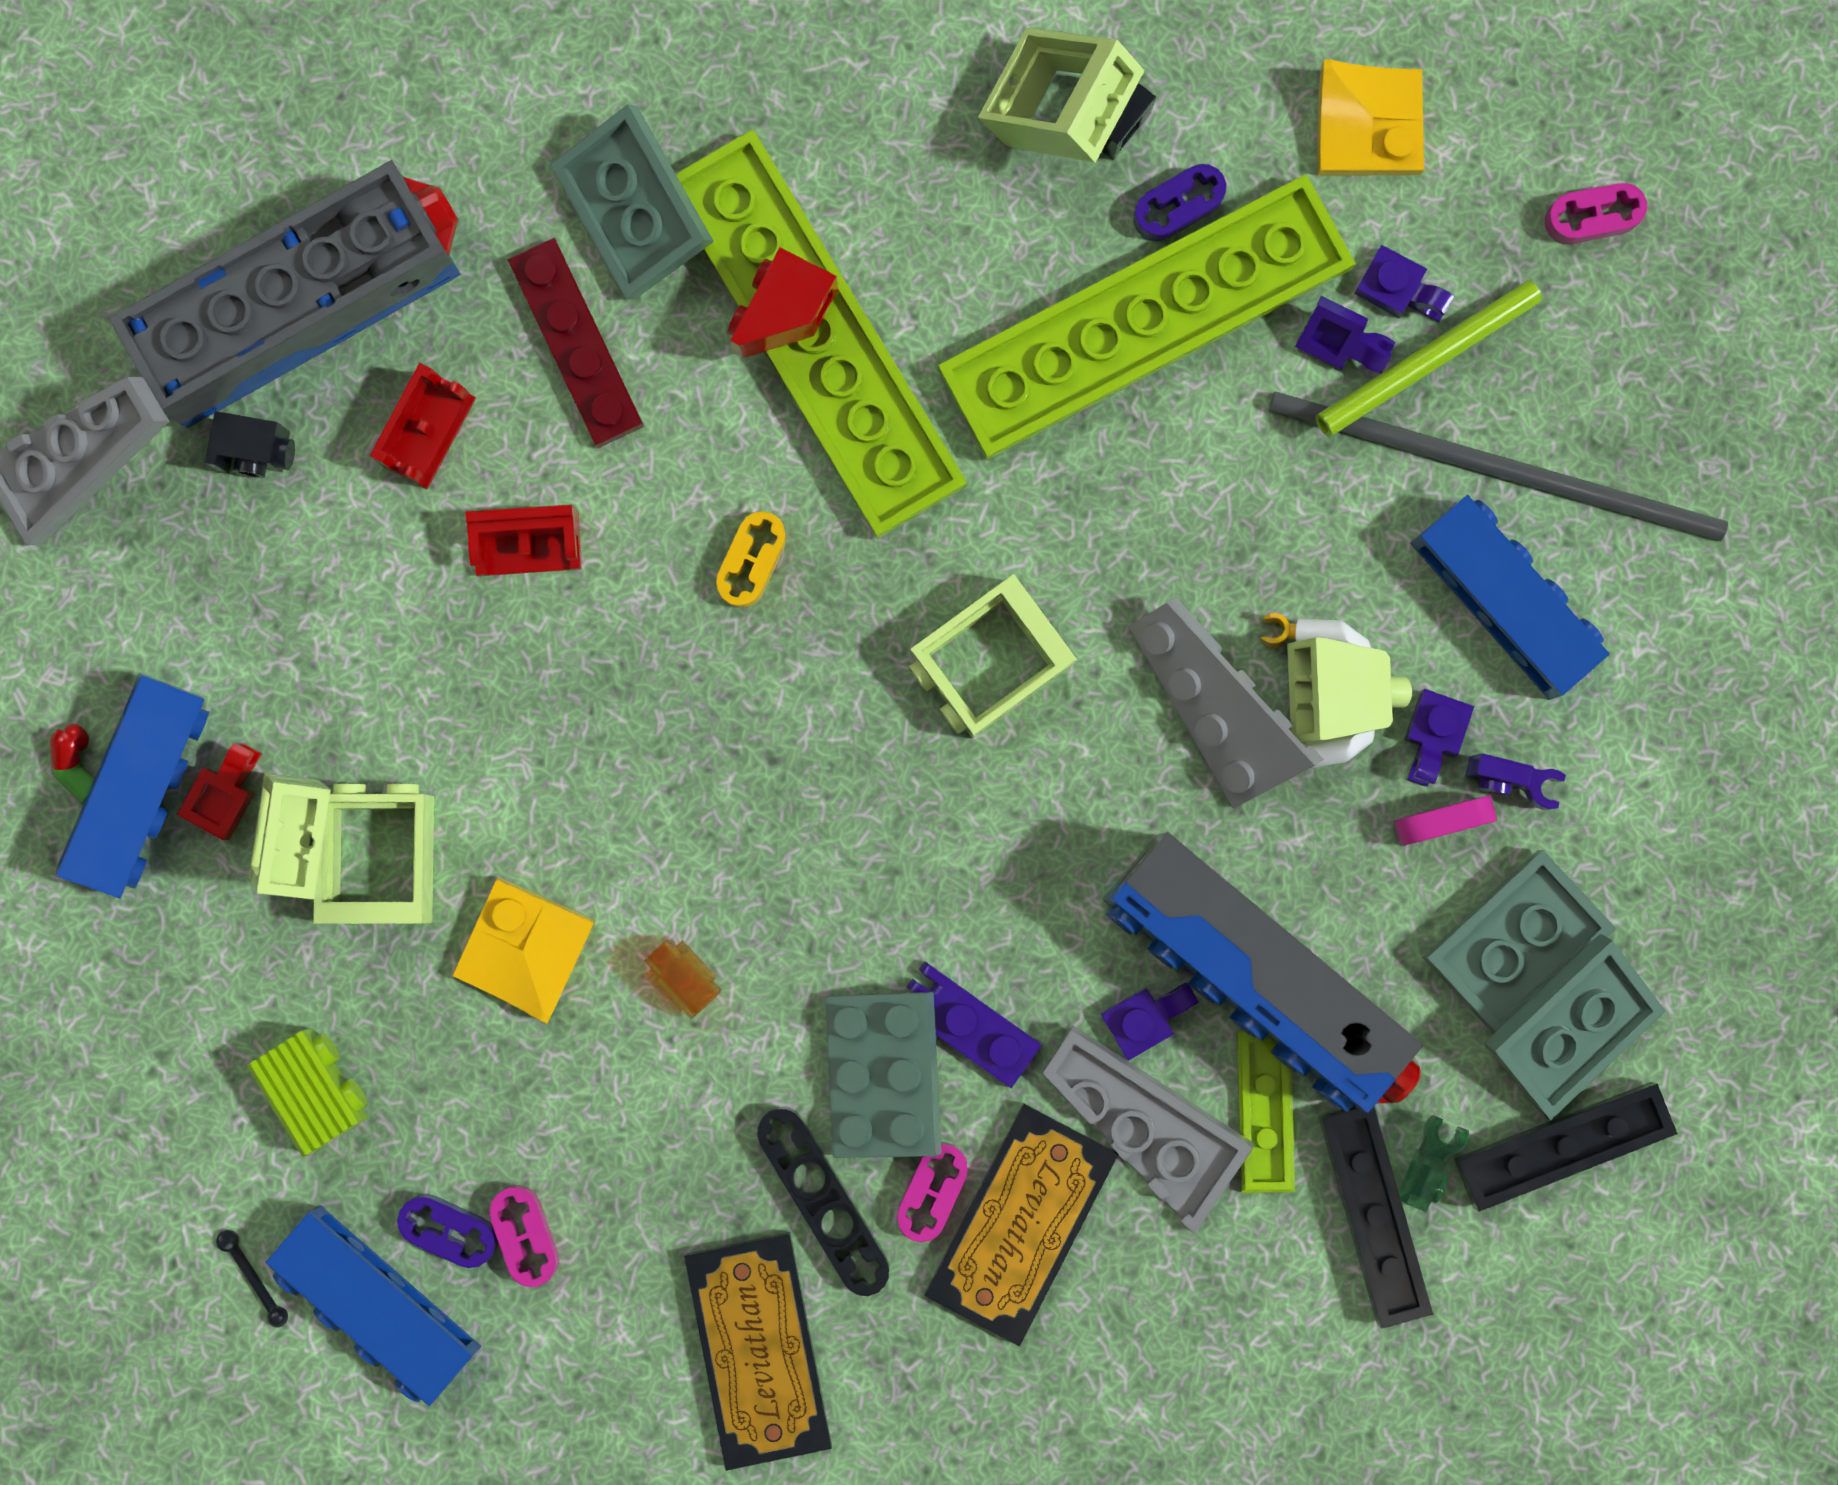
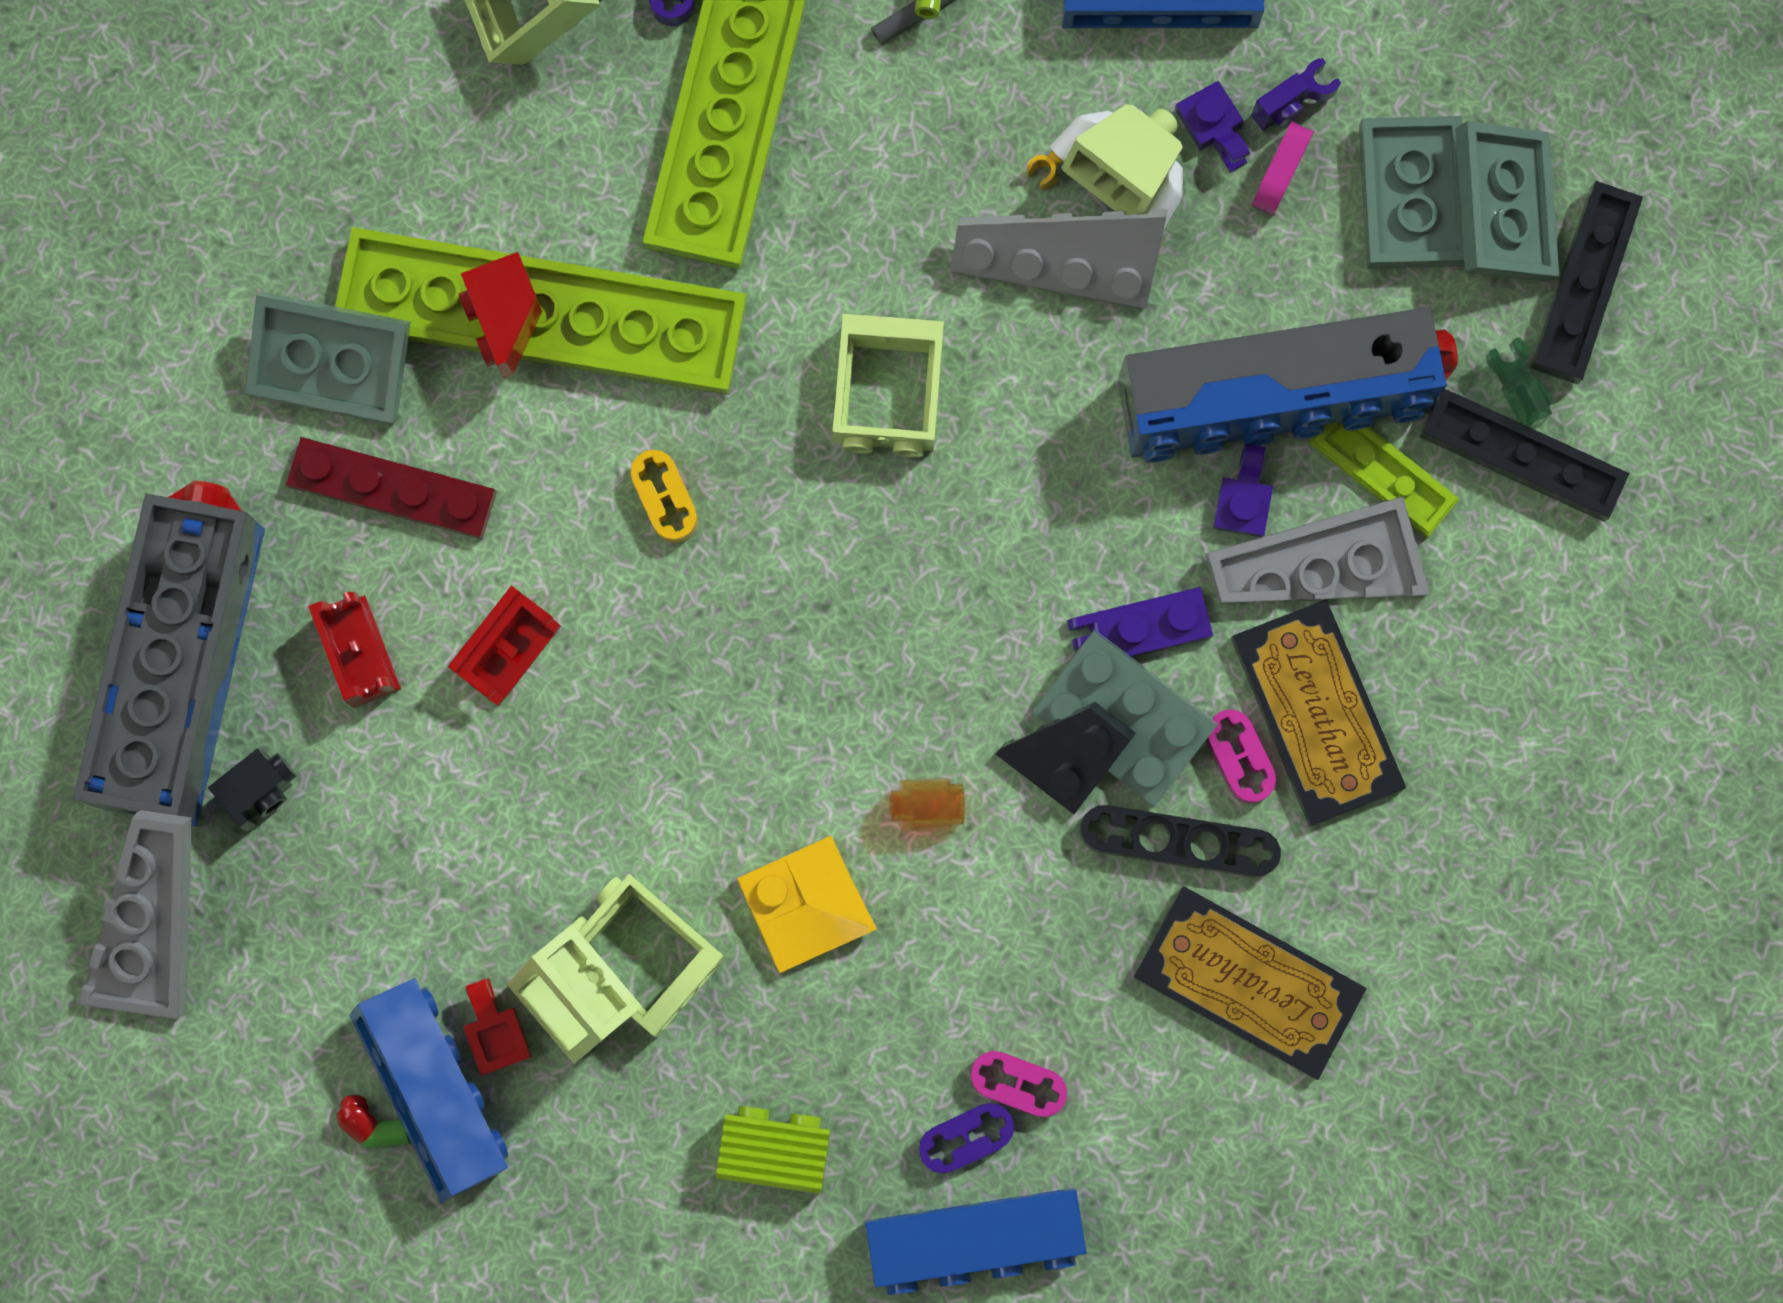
camera: 45 degrees left, 5 degrees down
(815, 1057) = (1069, 753): none -> black wing

